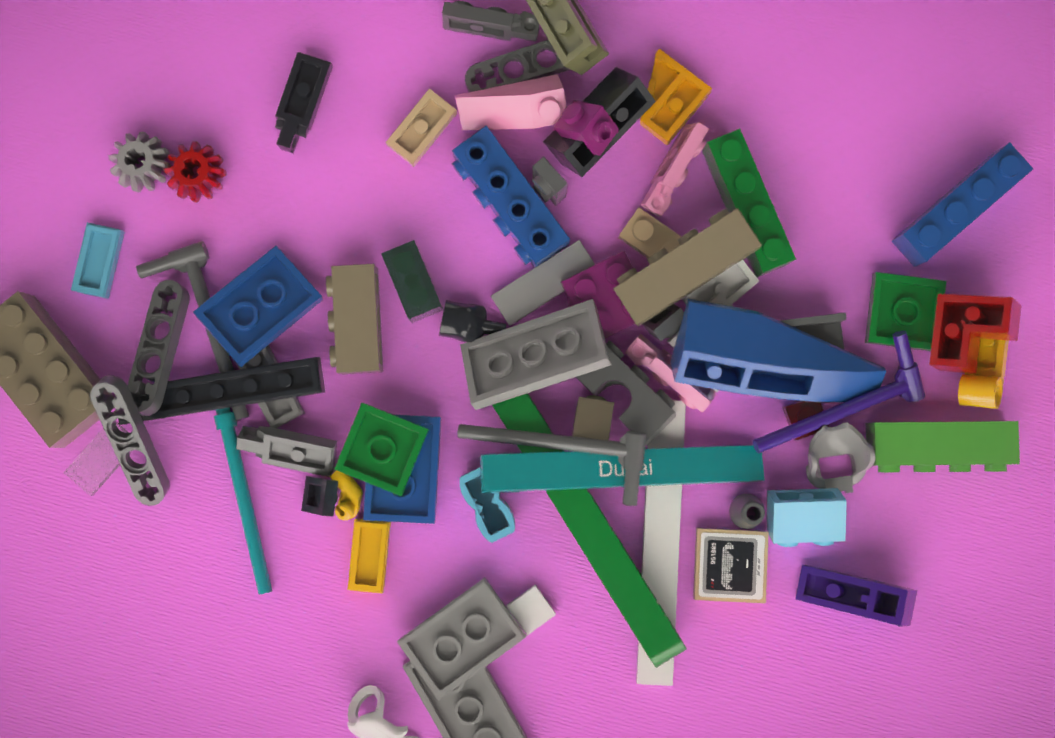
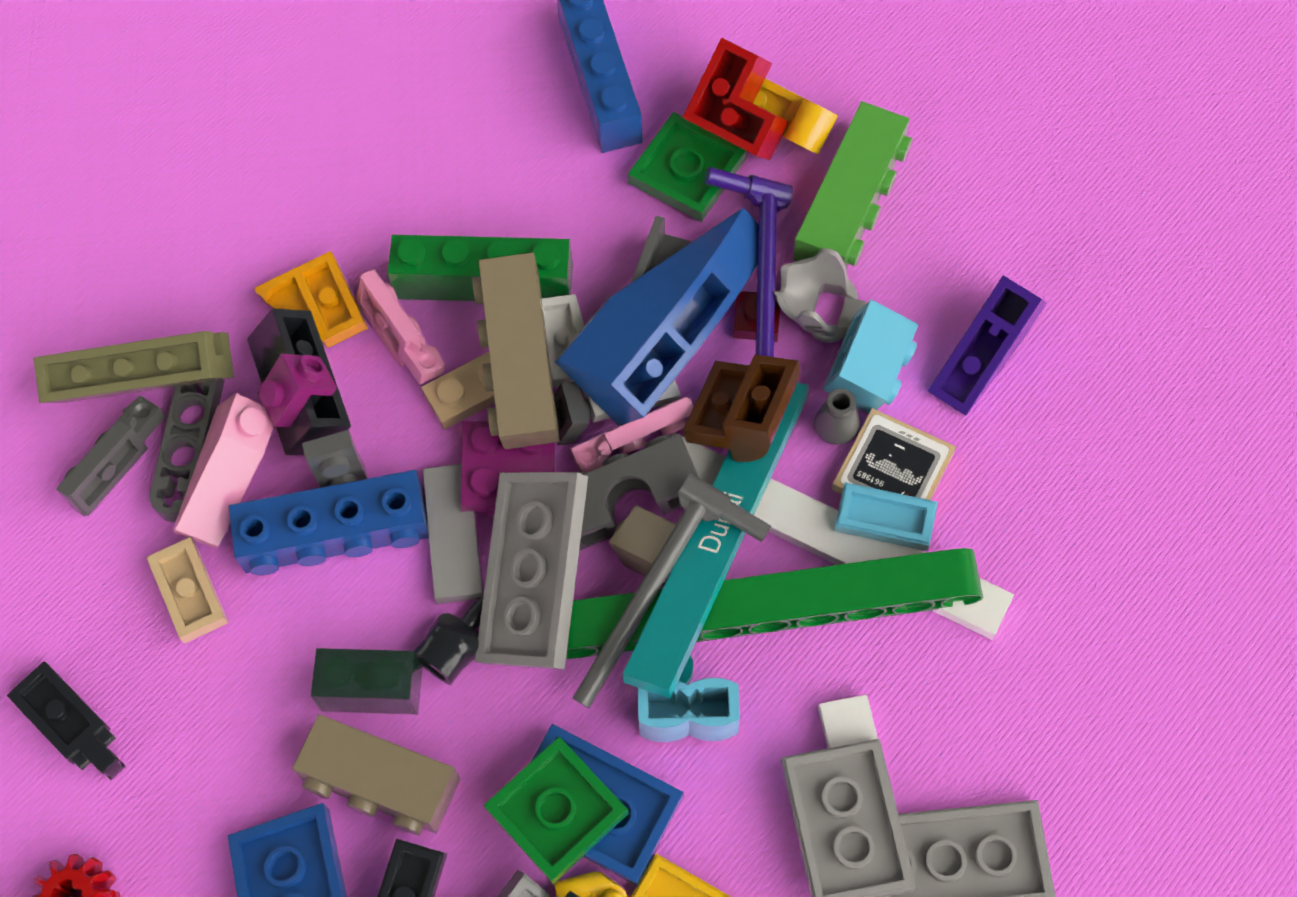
camera: 65 degrees left, 20 degrees down
(688, 576) = (886, 516): none -> medium azure tile
(719, 445) = (743, 406): none -> reddish brown brick

